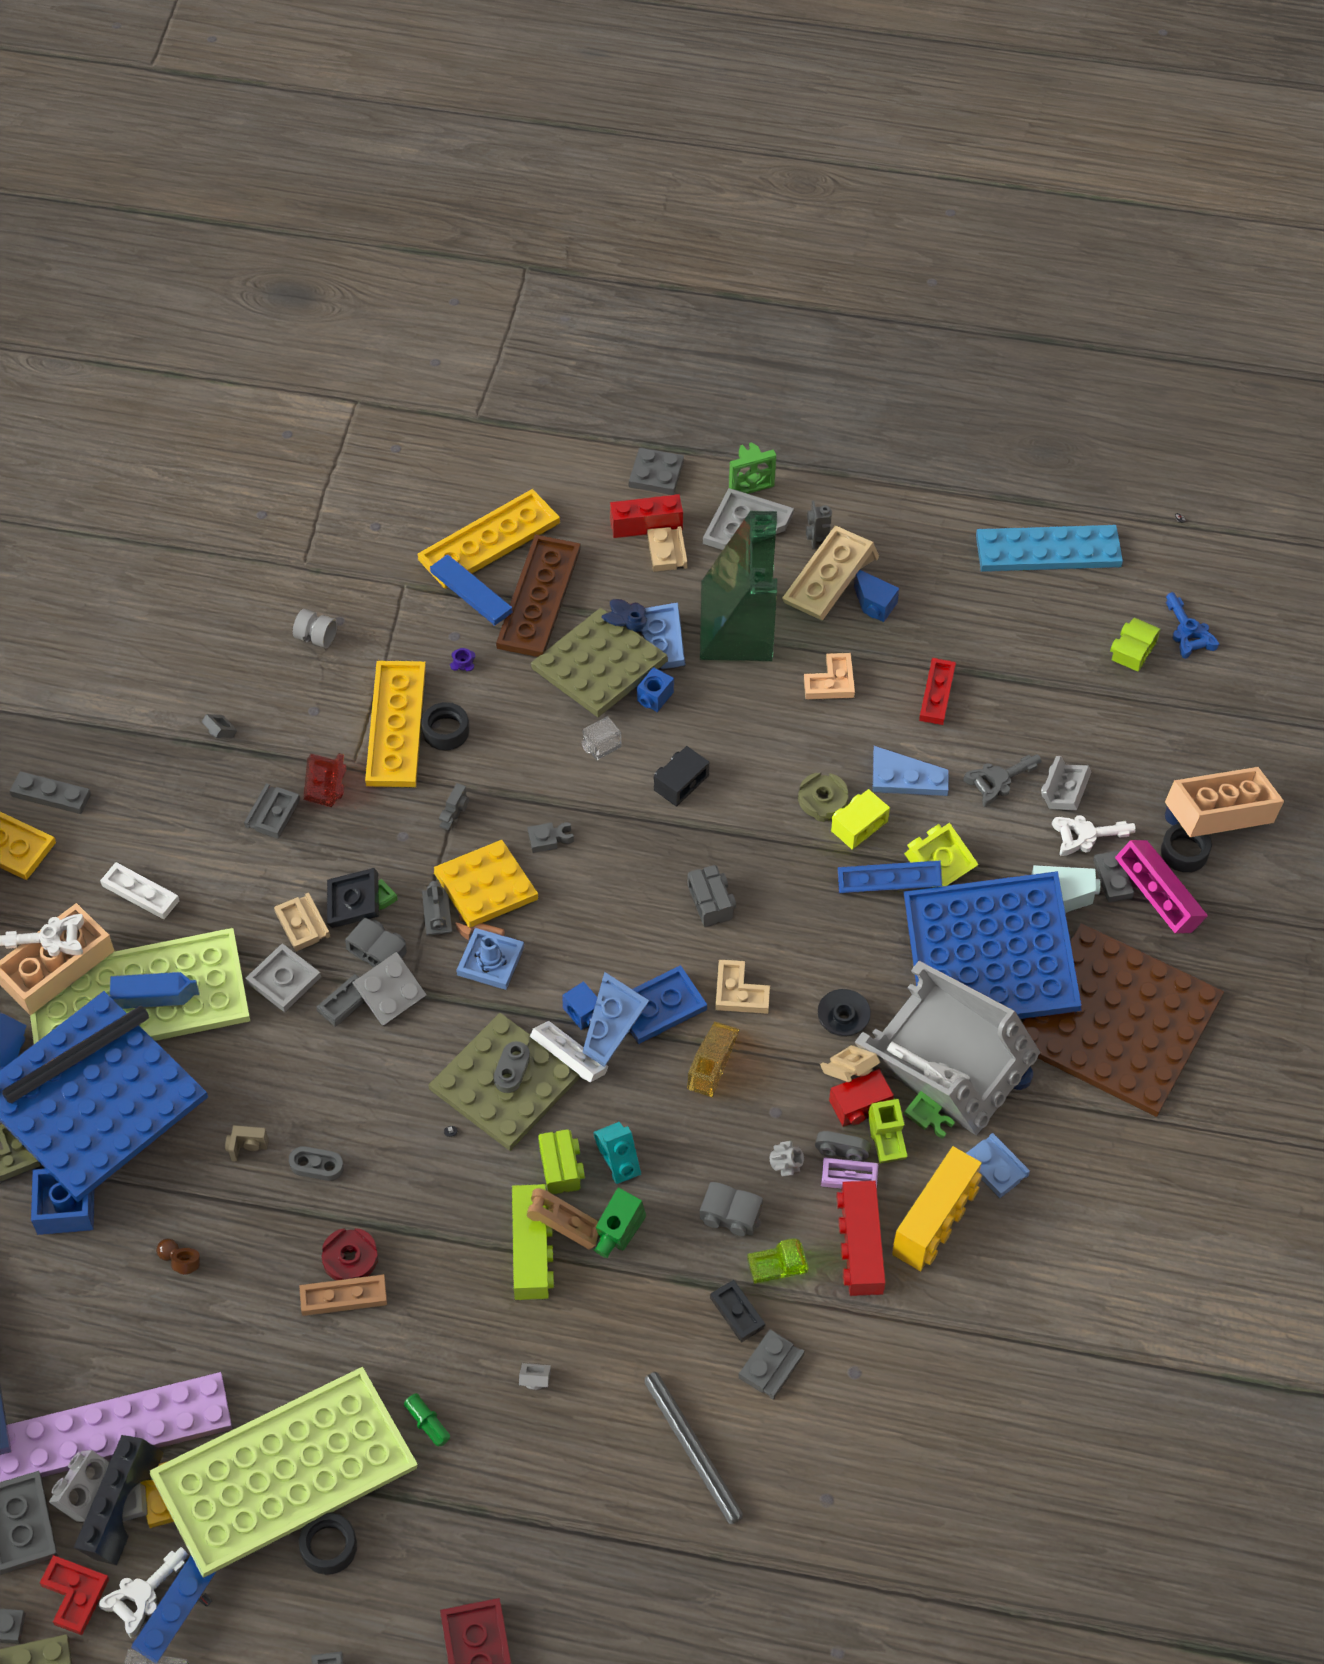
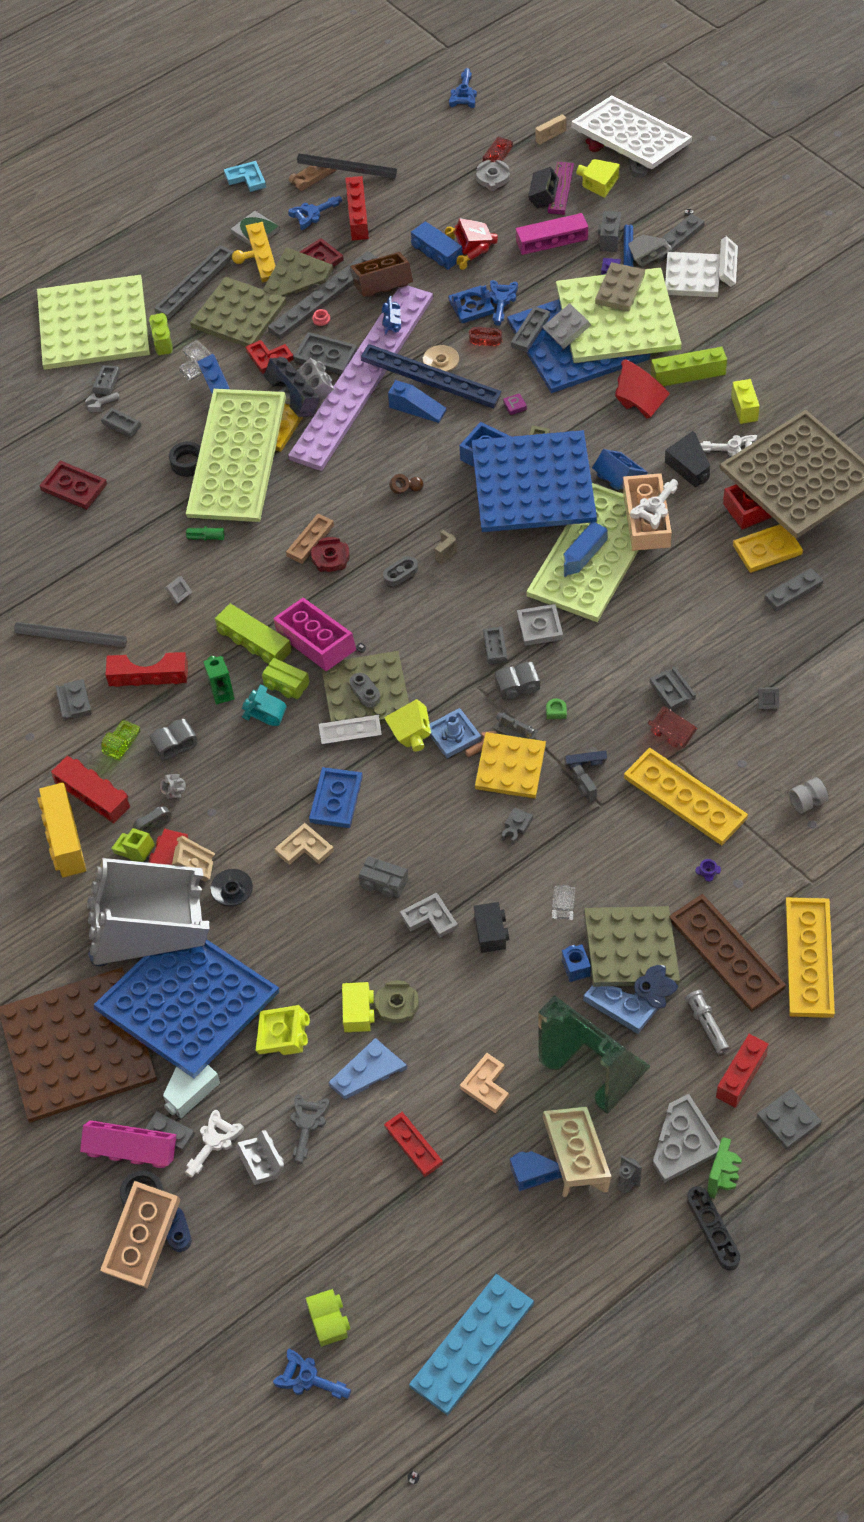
camera: 135 degrees right, 0 degrees up
(35, 1345) = (414, 402): none -> blue slope
(75, 1054) = (559, 478): black axle -> none
(140, 890) = (671, 591): white plate -> none
(141, 1593) = (239, 379): white piece -> none
(301, 922) = (571, 656): tan plate -> none
(352, 898) = (562, 687): black plate -> none
(389, 988) = (479, 667): light grey plate -> none
(423, 824) = (594, 758): none -> dark blue plate
(442, 711) = (656, 807): black tyre -> none
(471, 589) = (762, 905): blue tile -> none
(484, 1164) = (315, 634): none -> dark pink brick
(520, 993) = (410, 724): none -> neon yellow torso
(563, 1218) = (246, 650): medium nougat plate -> none
(580, 1004) = (372, 756): blue brick -> none
(610, 581) = (702, 1012): none -> light grey pin
(612, 1018) = (344, 756): medium blue wing -> none
(646, 1288) = (170, 669): none -> red arch
(667, 548) = (702, 1069): tan plate -> none
(709, 836) = (432, 911): none -> light grey plate
(711, 1059) = (272, 795): clear yellow slope -> none
(737, 1311) = (115, 702): black plate -> none
(796, 461) = (710, 1229): none -> black beam
(835, 1178) = (128, 825): lavender tile -> none
(889, 876) = (295, 986): blue tile -> none
(937, 1072) = (139, 891): white piece -> none
(999, 1166) = (61, 895): medium blue plate -> none

